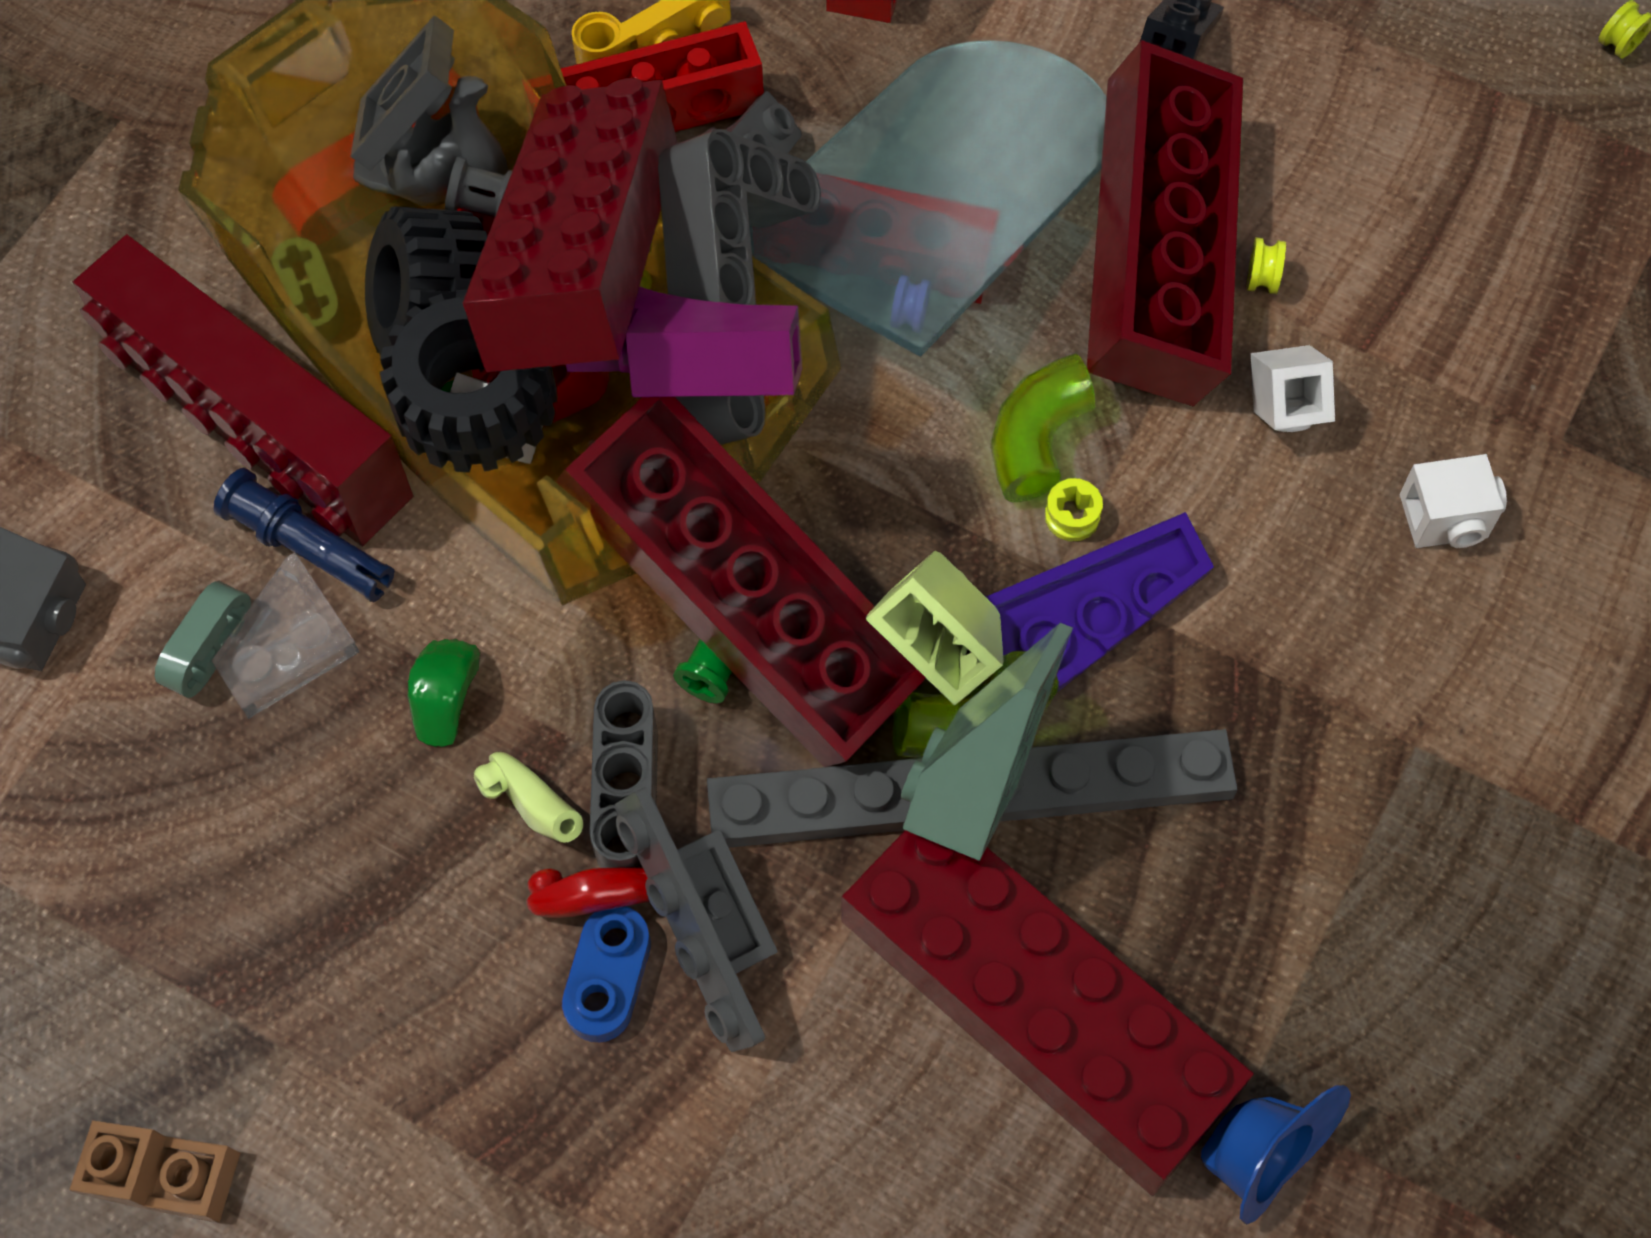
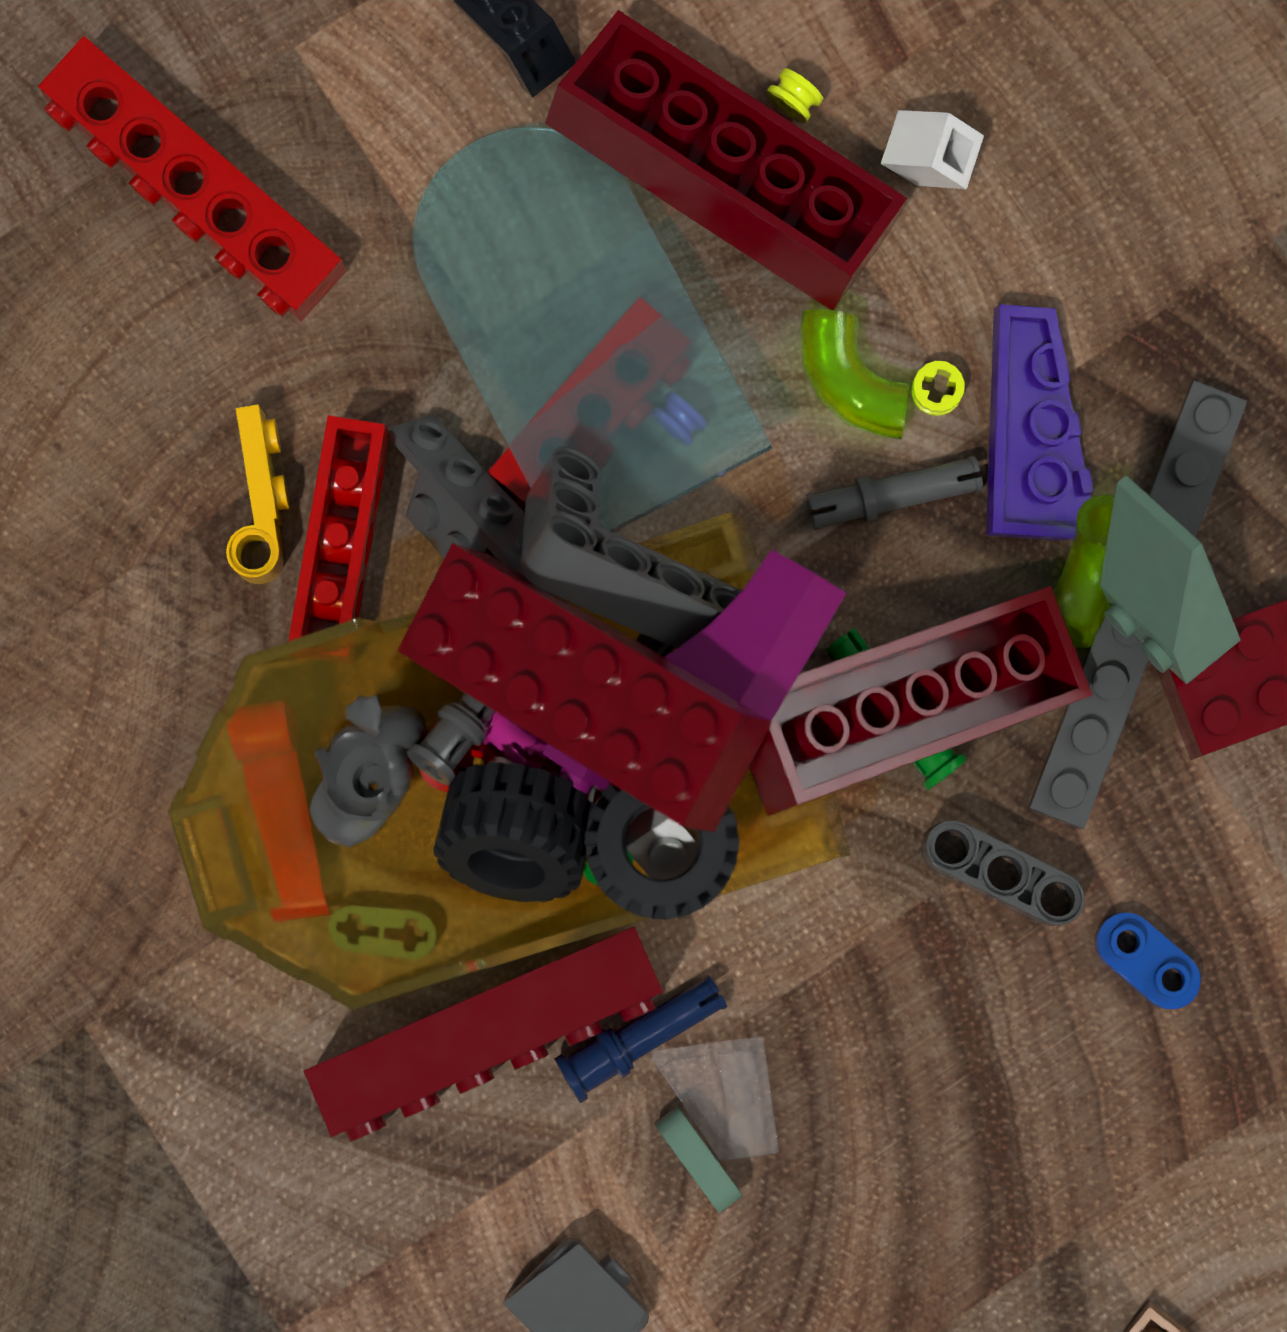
camera: 65 degrees left, 20 degrees up
(405, 90) = (319, 768): dark grey plate -> none
(439, 688) = (838, 980): green hair -> none
(530, 795) = (977, 952): yellowish green arm -> none
(585, 891) = (1085, 947): red arm -> none
(708, 913) = (1150, 861): dark grey bracket -> none
(931, 495) = (893, 492): none -> dark grey pin
(934, 622) = (1022, 561): yellowish green torso -> none
(1453, 501) = (1097, 82): white brick -> none

